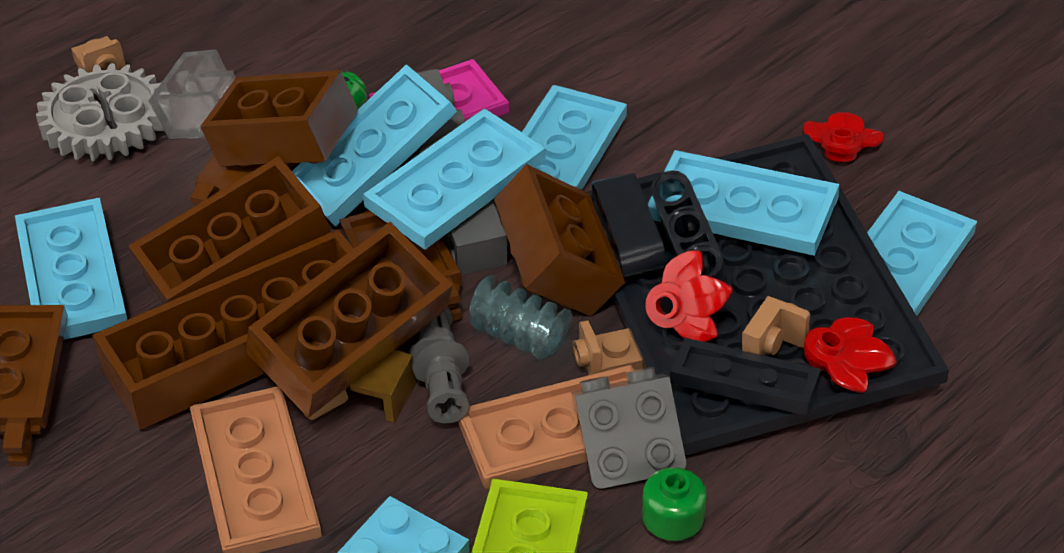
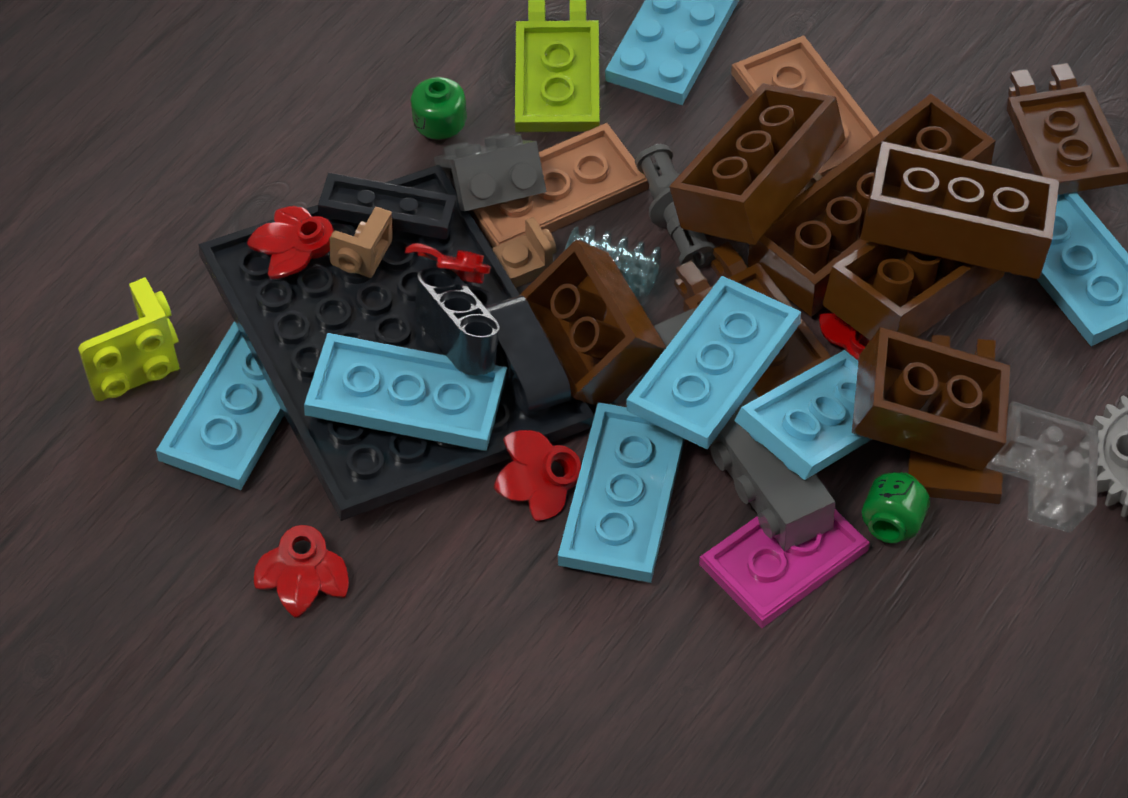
camera: 170 degrees right, 10 degrees up
(179, 222) = (961, 210): none -> reddish brown brick
(630, 162) = (531, 474): none -> red plate
(1006, 281) = (134, 351): none -> neon yellow bracket

